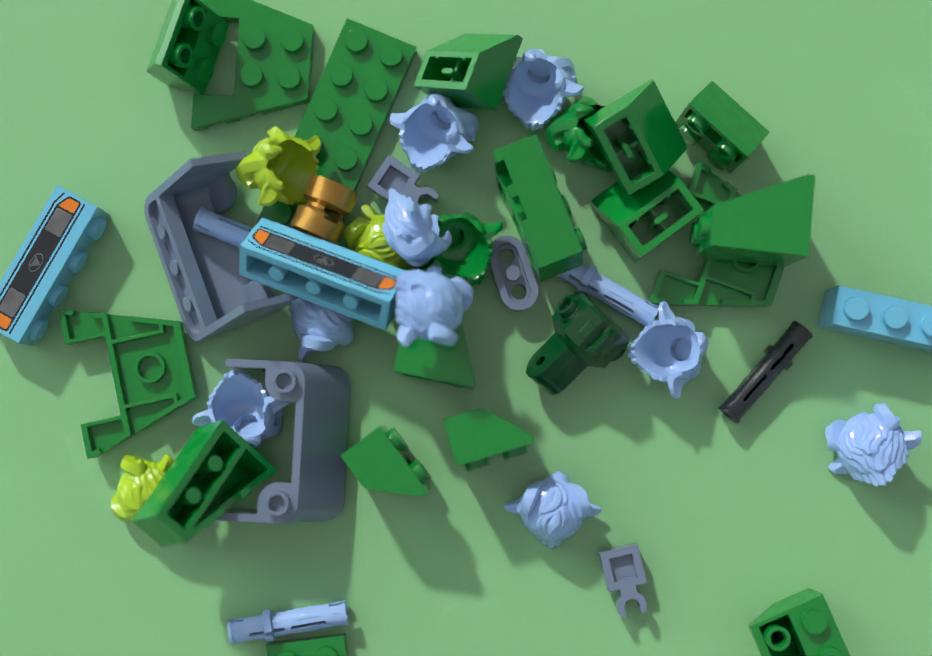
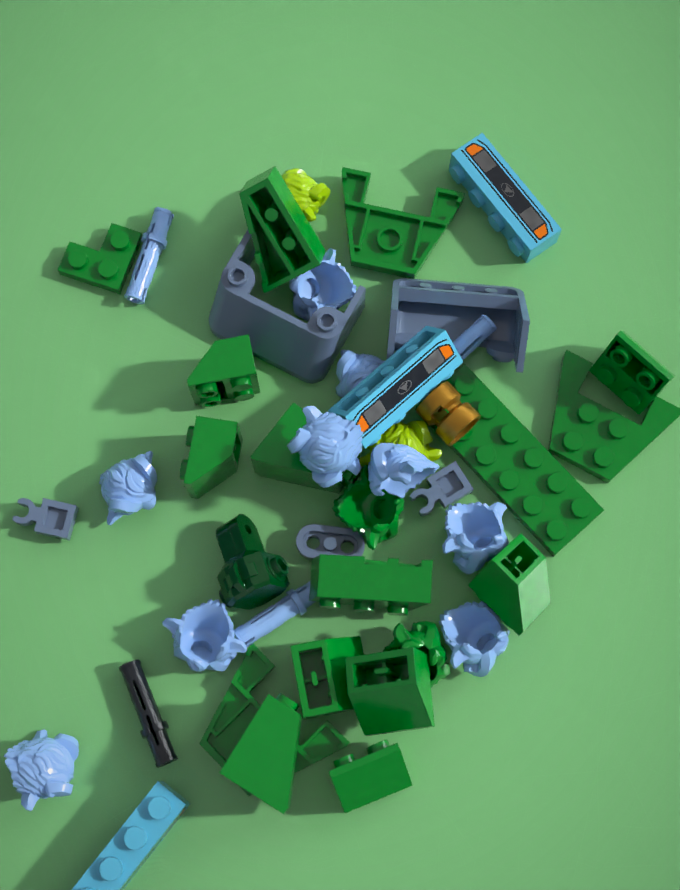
camera: 120 degrees right, 10 degrees down
(280, 167) = (498, 395): lime hair -> none

